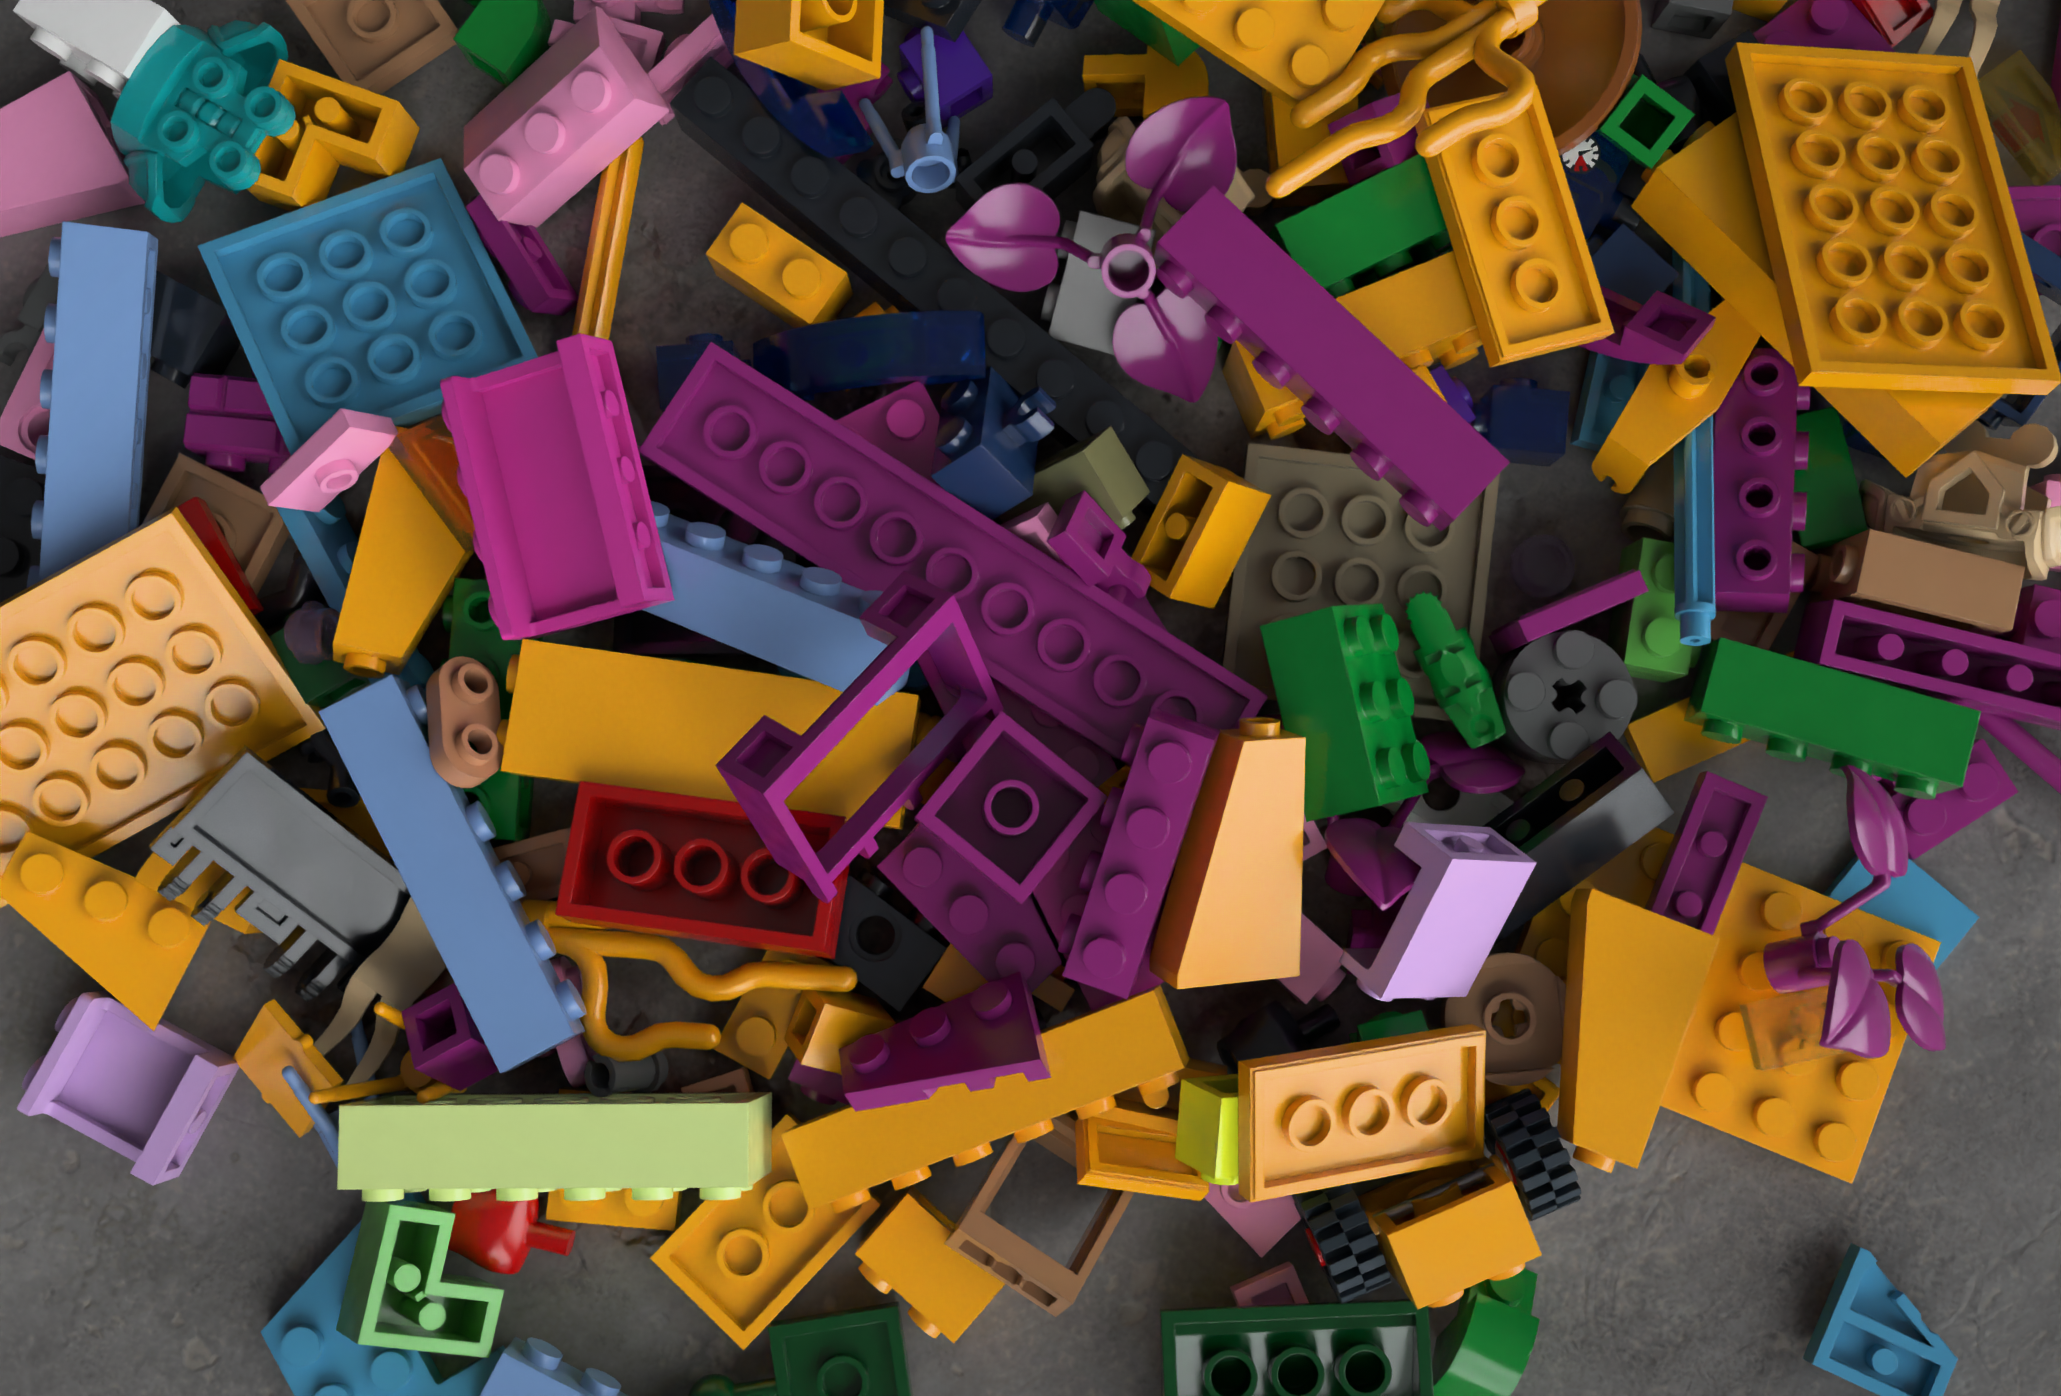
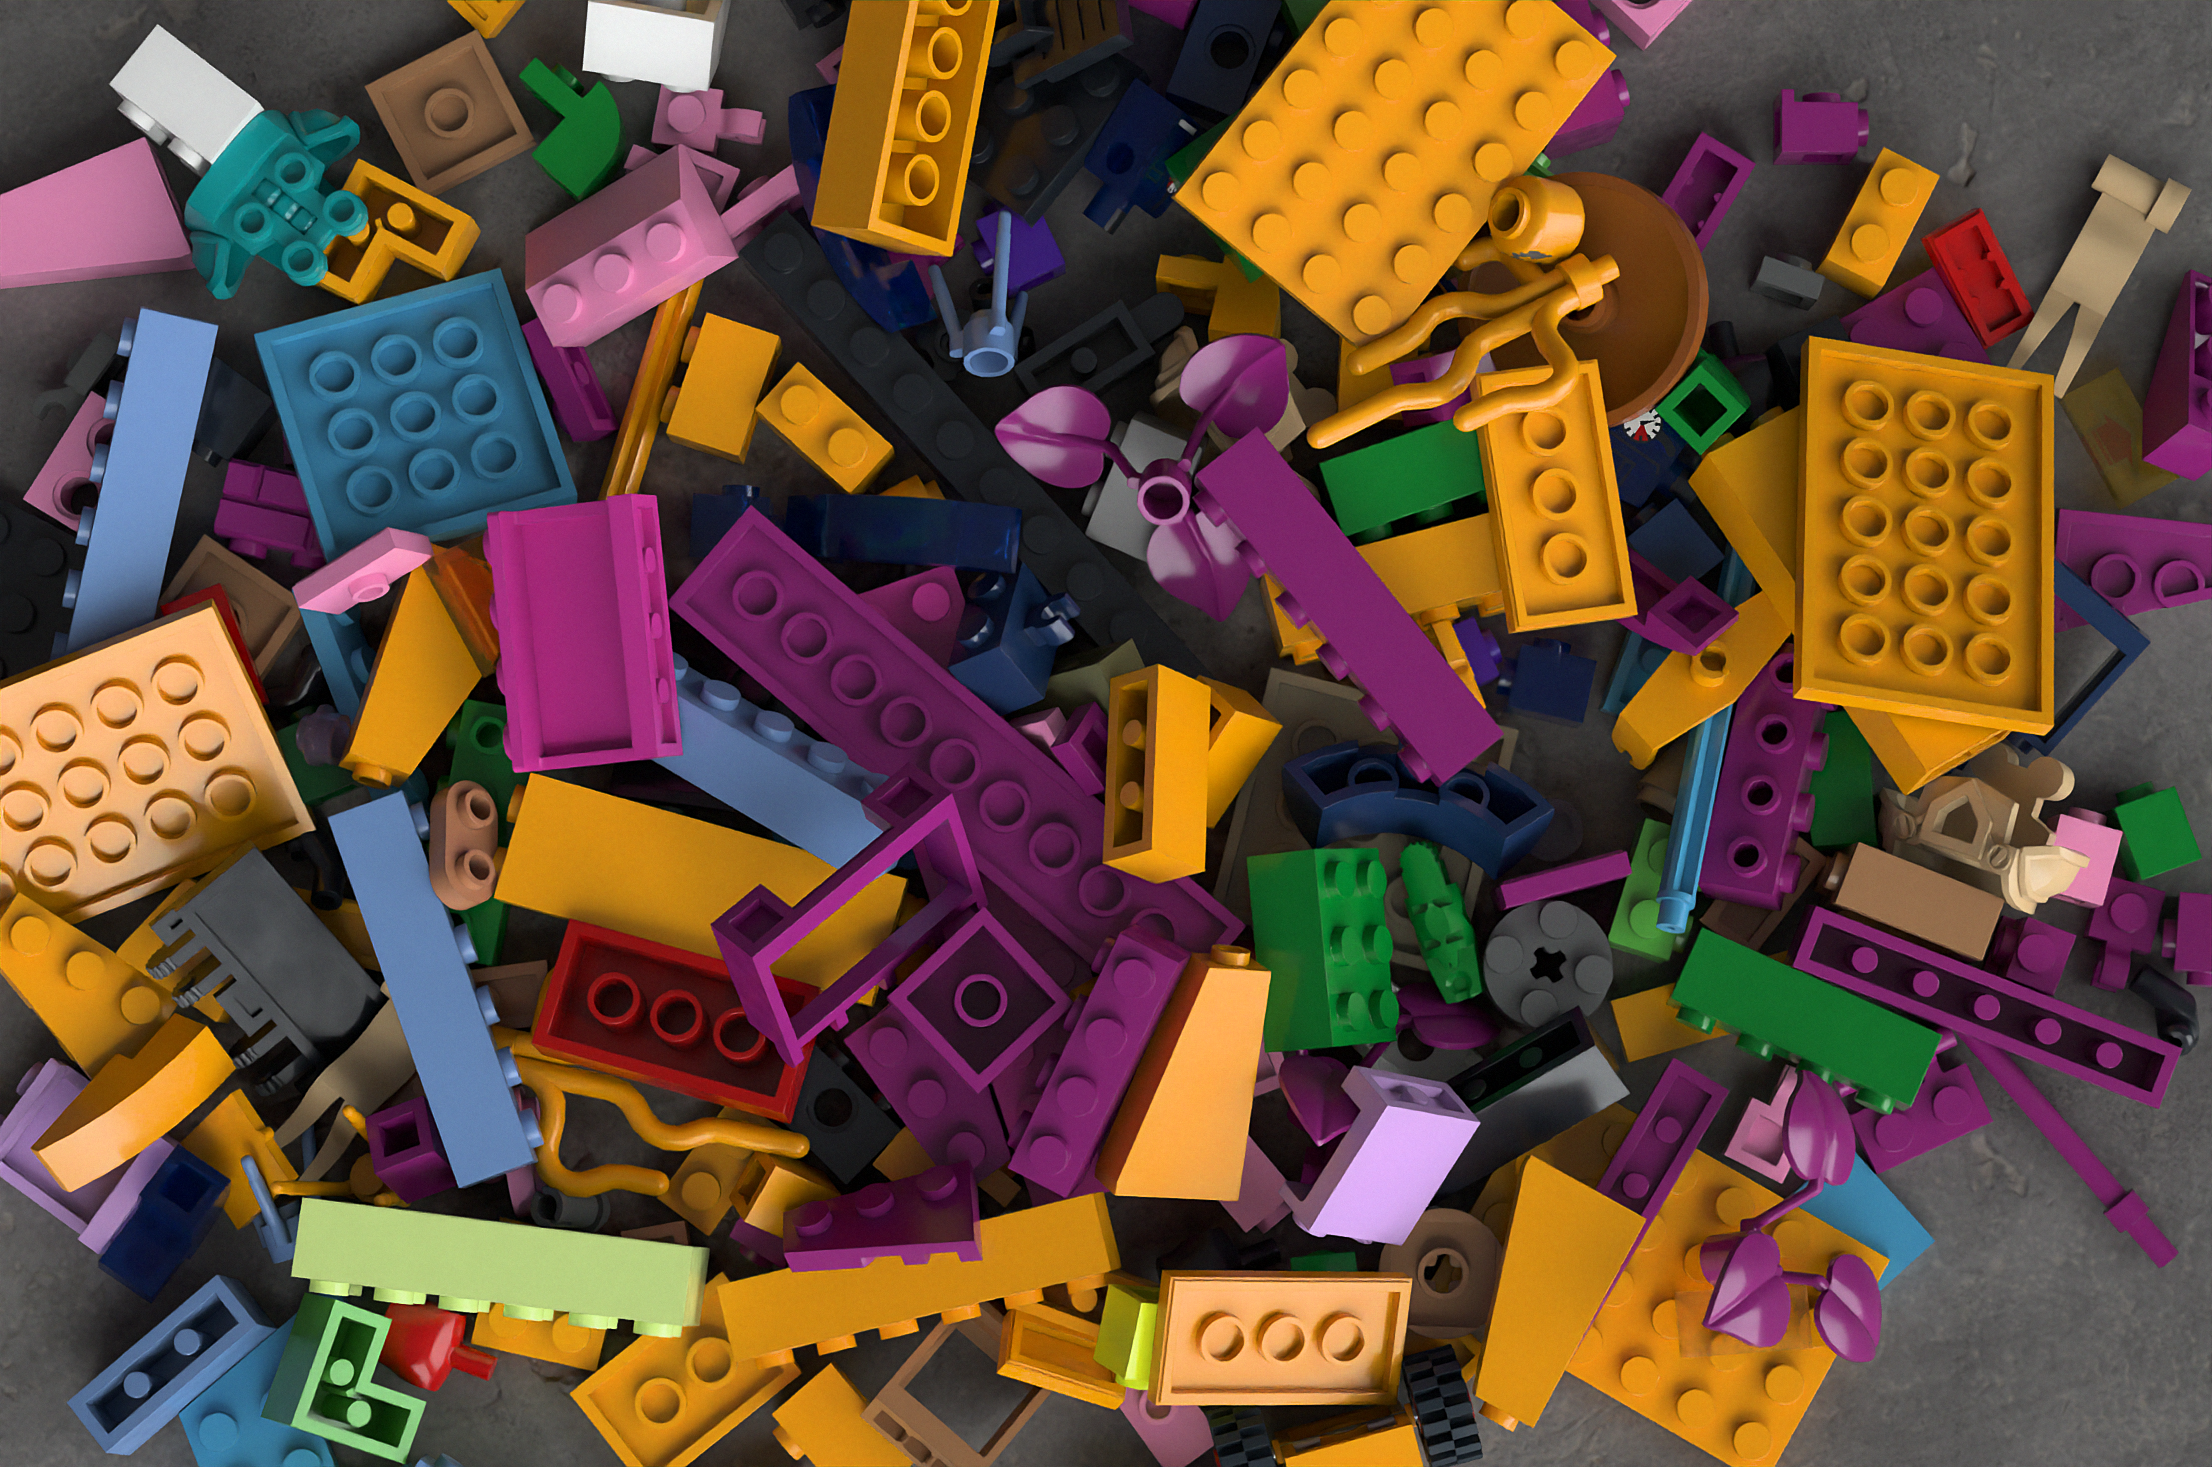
camera: 10 degrees right, 0 degrees up
(167, 1029) = (133, 1103): none -> light orange slope
(230, 1135) = (170, 1223): none -> clear blue brick
(242, 1288) = (172, 1365): none -> medium blue brick
(673, 229) = (722, 387): none -> light orange brick
(1158, 554) = (1157, 774): none -> light orange brick
(1376, 546) = (1369, 791): none -> dark blue brick
(1802, 834) = (1758, 1131): none -> bright pink plate

